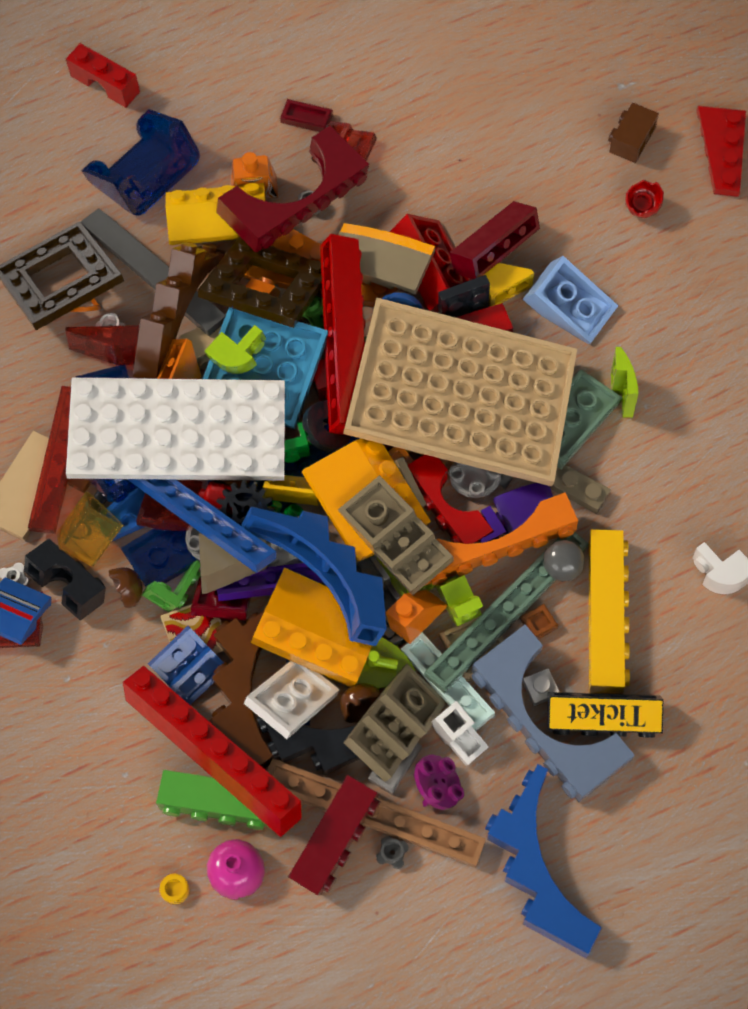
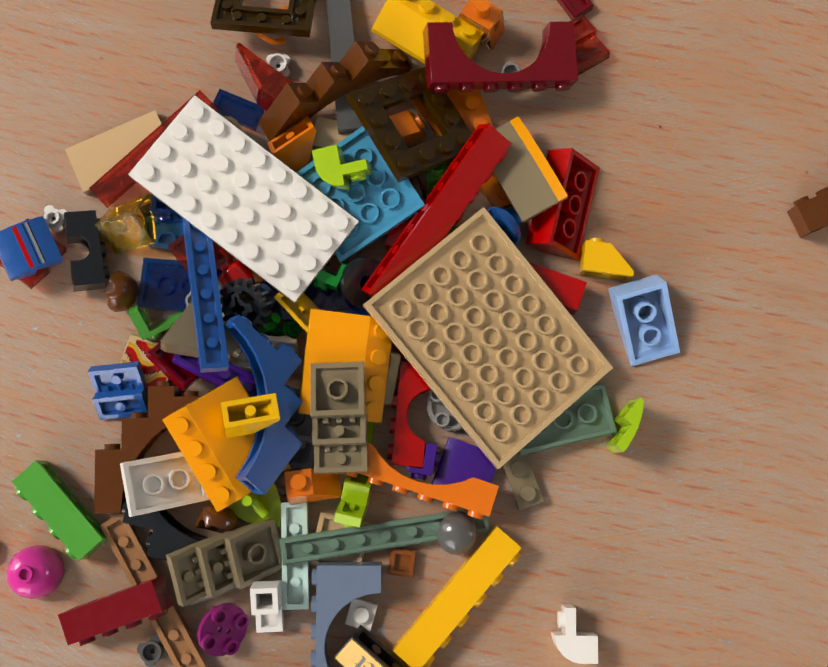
camera: 35 degrees right, 15 degrees up
(213, 751) = (76, 477): red brick -> none
(322, 578) = (249, 414): none -> yellow slope
(464, 297) = (559, 256): black plate -> none
(495, 240) = (625, 223): dark red brick -> none
(644, 199) = (779, 278): red hair -> none

